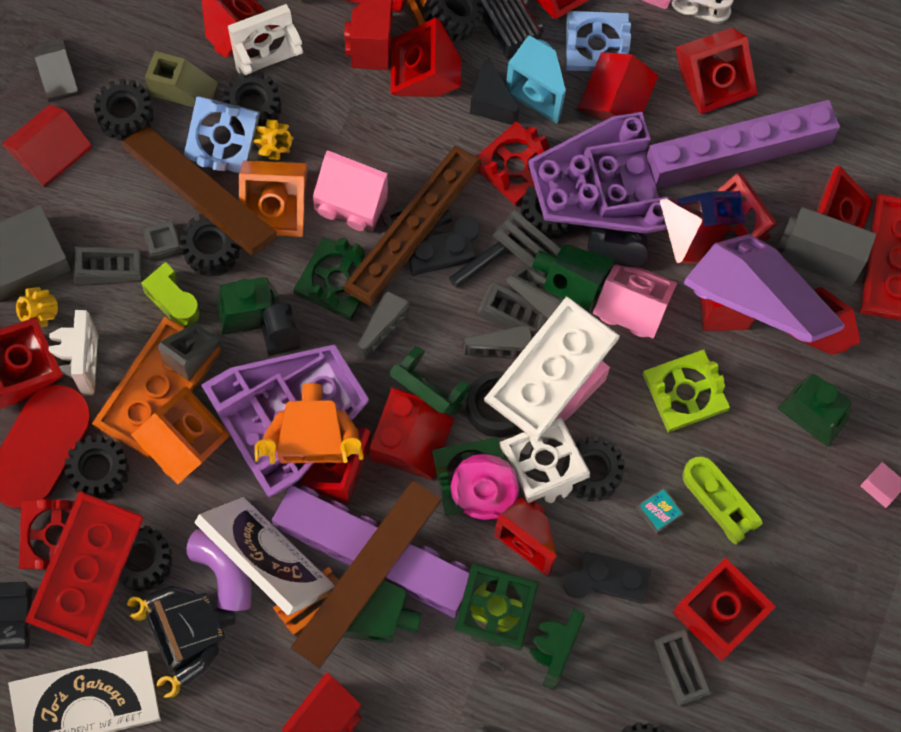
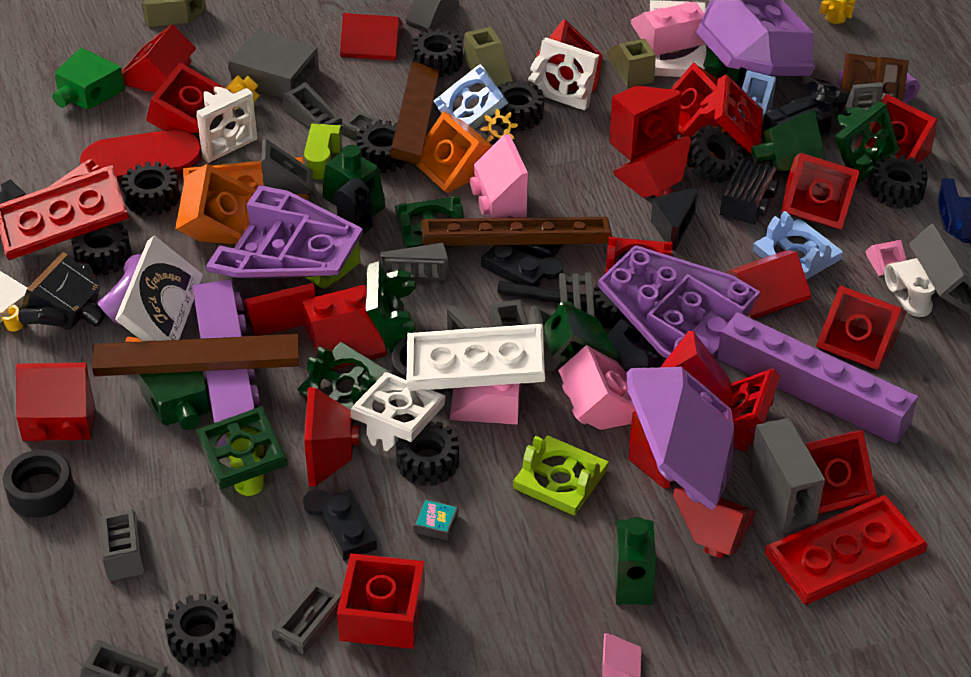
camera: 55 degrees right, 25 degrees down
(310, 432) = (270, 246): orange torso -> none
(484, 486) = (340, 376): dark pink tile -> none
(537, 79) = (716, 221): medium azure slope -> none
(556, 646) = (231, 525): dark green piece -> none
(718, 207) = (726, 368): clear blue panel -> none
(720, 498) = (485, 549): lime plate -> none

